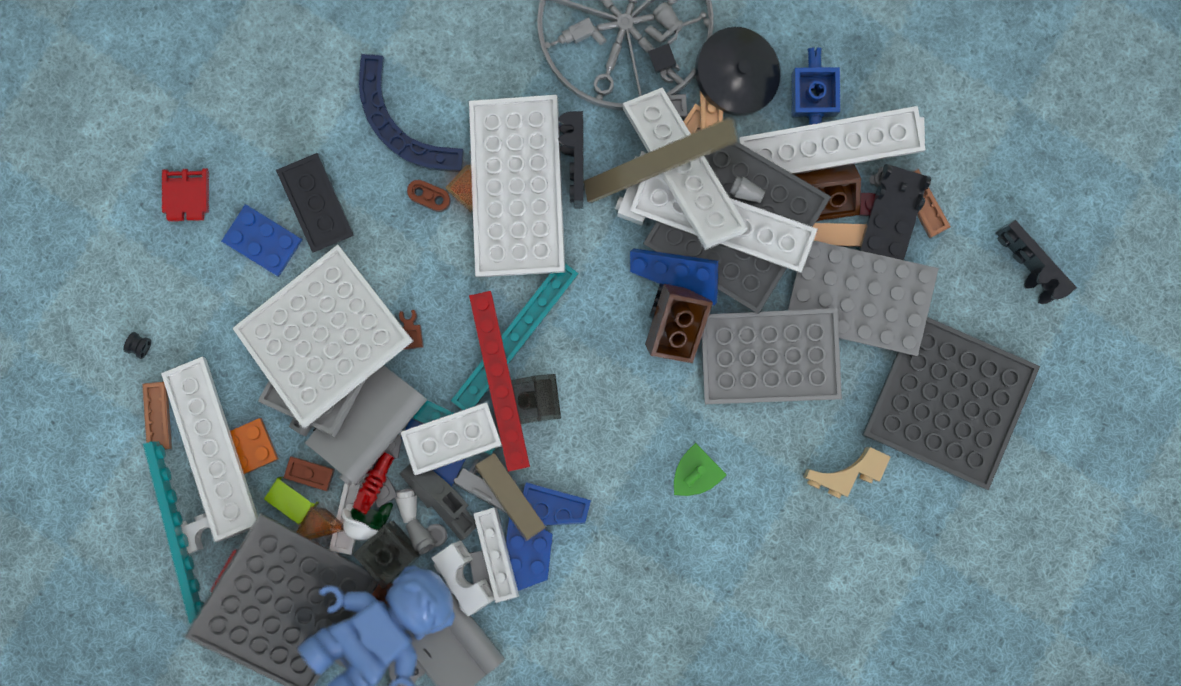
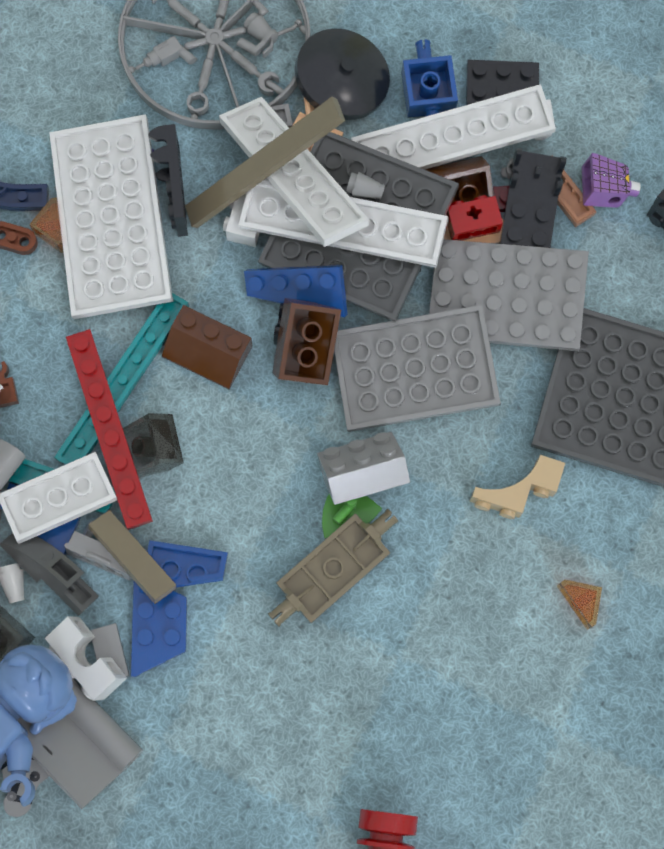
camera: 10 degrees left, 10 degrees down
(420, 537) = (30, 617): light grey cone -> none
(439, 533) = (49, 614): light grey tile -> none
(496, 555) = (121, 627): white plate -> none
(590, 316) = (206, 347): none -> reddish brown slope
(662, 58) = (258, 67): black tile -> none
(679, 524) = (333, 568): none -> dark tan plate
(715, 442) = (363, 467): none -> light grey brick
(852, 226) = (464, 227): none -> red brick
(880, 91) = (495, 78): none -> black plate
(889, 576) = (583, 600): none -> clear orange slope
(963, 201) = (606, 182): none -> medium lavender torso

